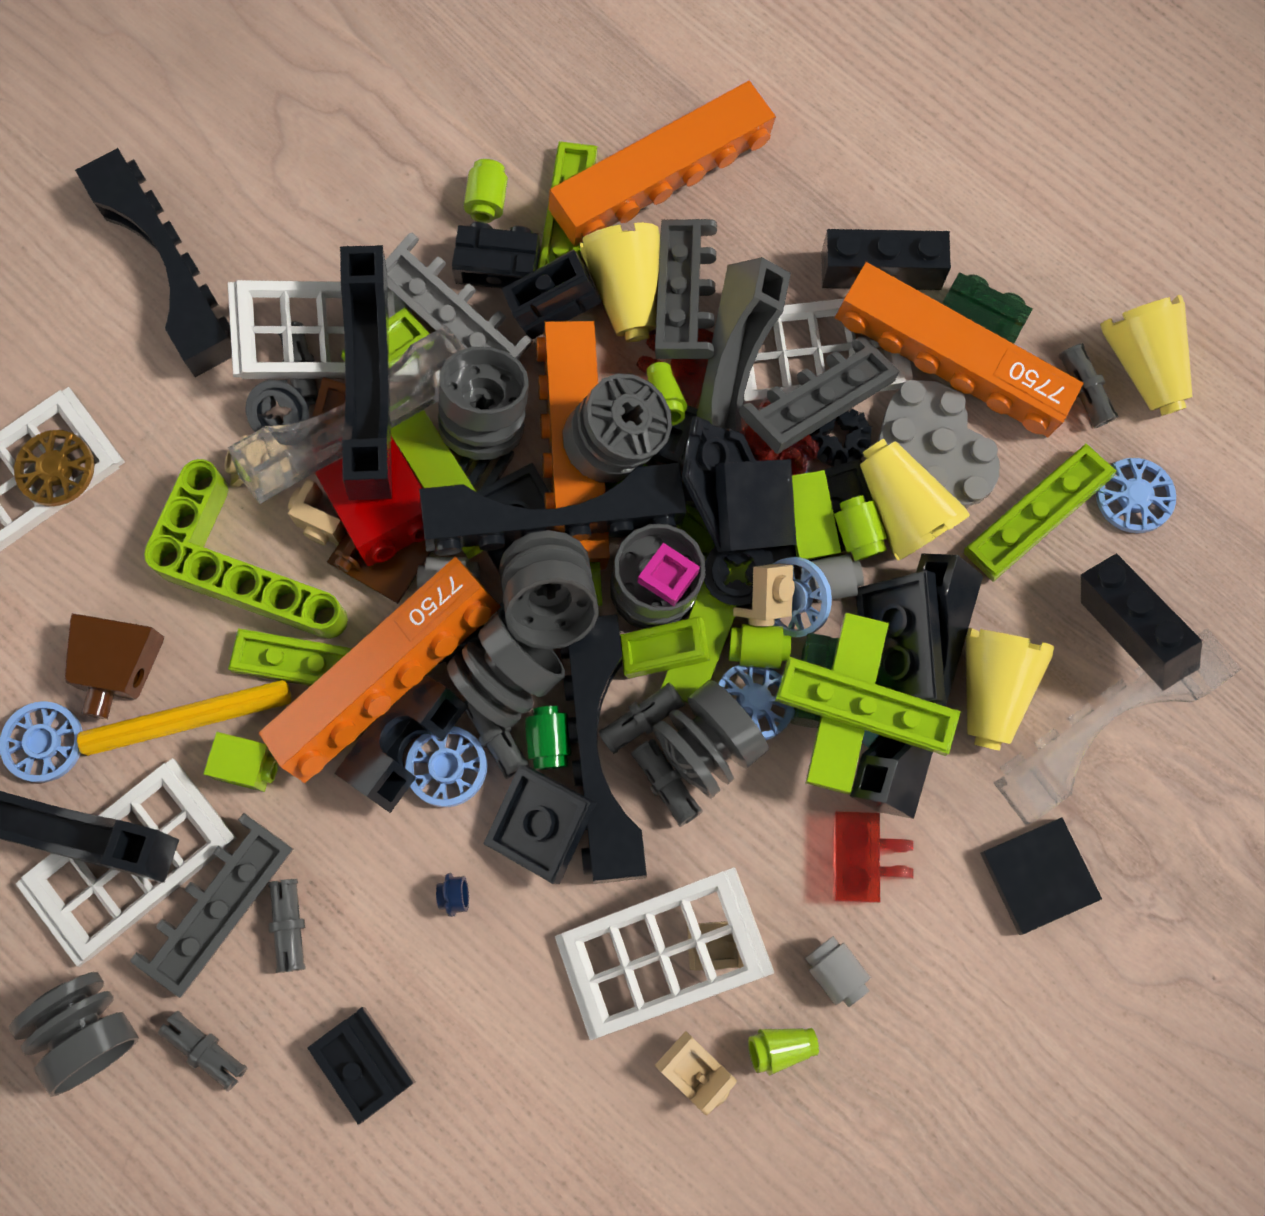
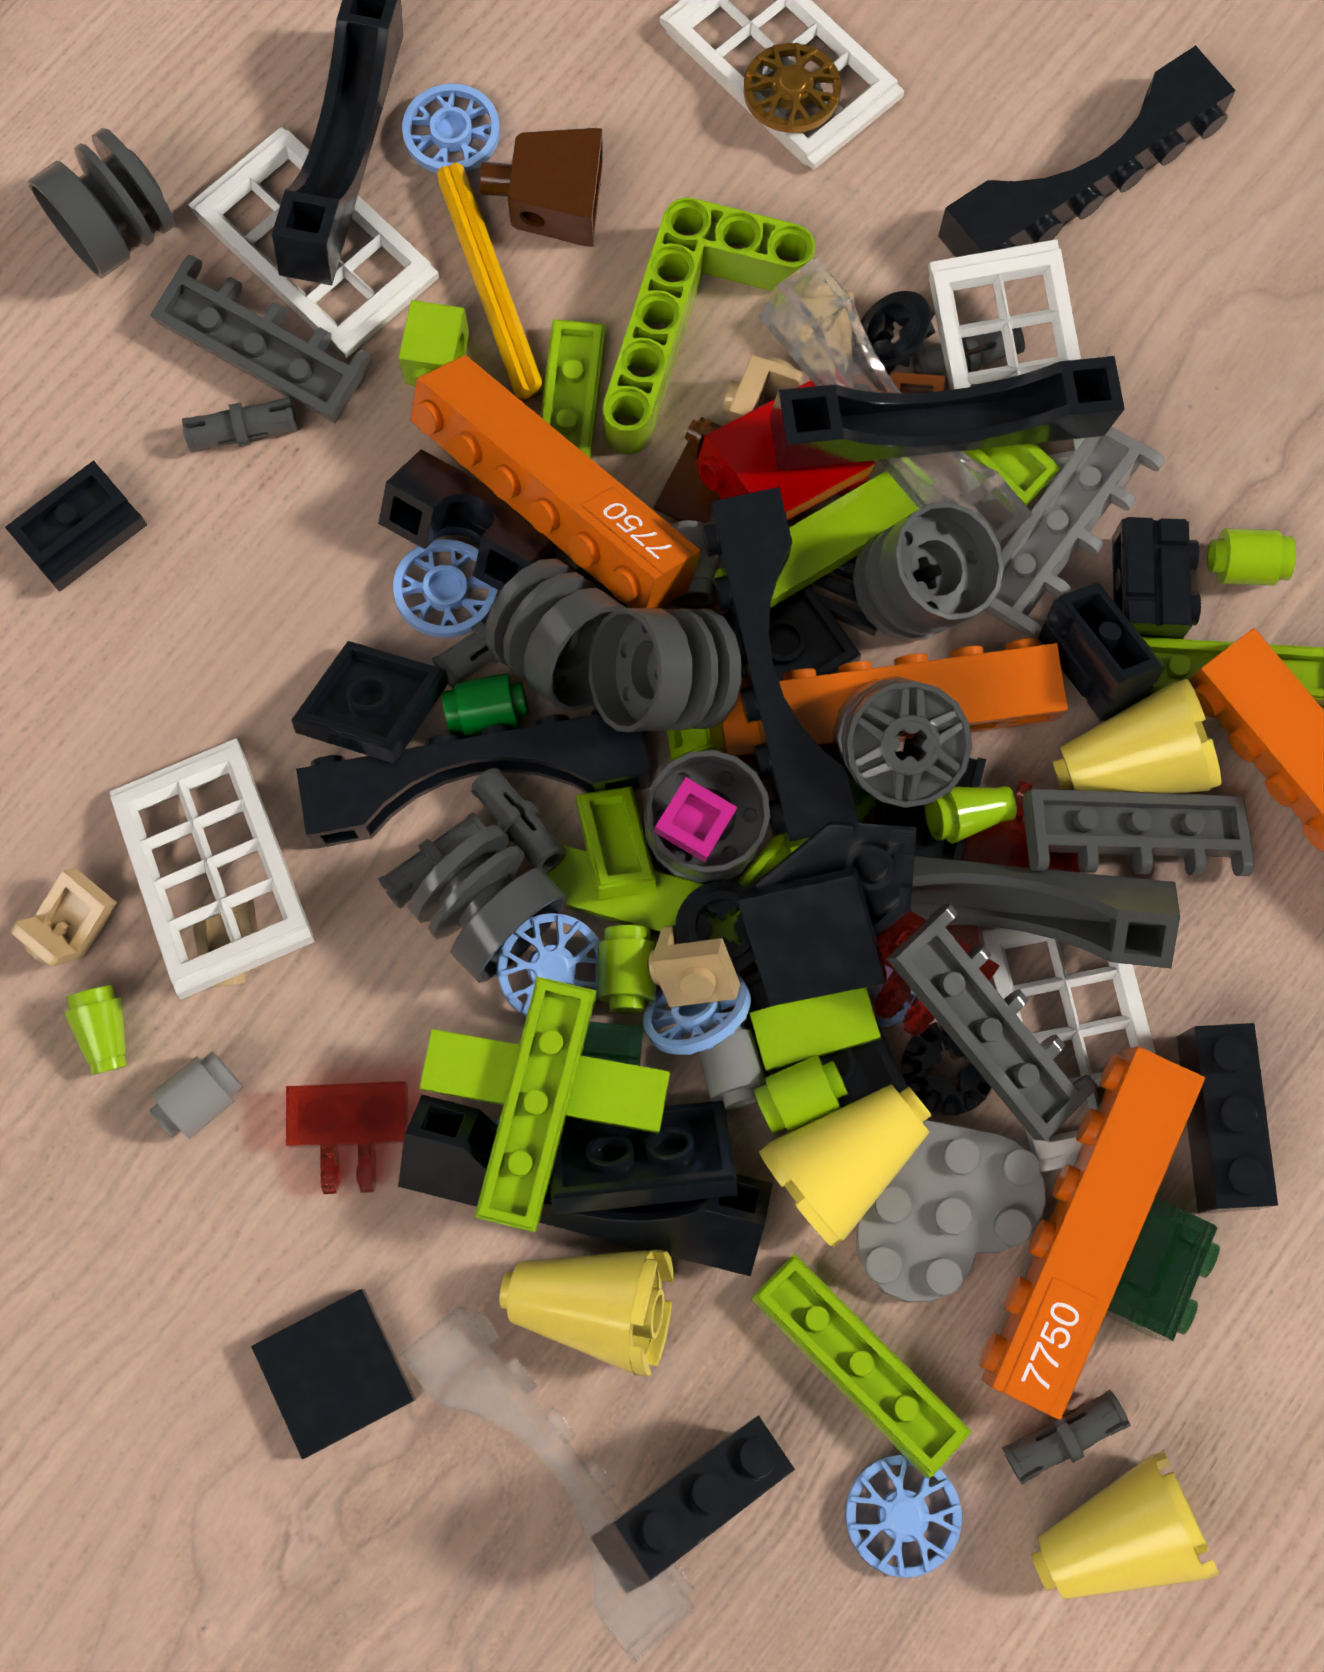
camera: 85 degrees right, 0 degrees up
(202, 1050) = (92, 350): dark grey pin -> none
(453, 894) = (282, 611): dark blue plate -> none

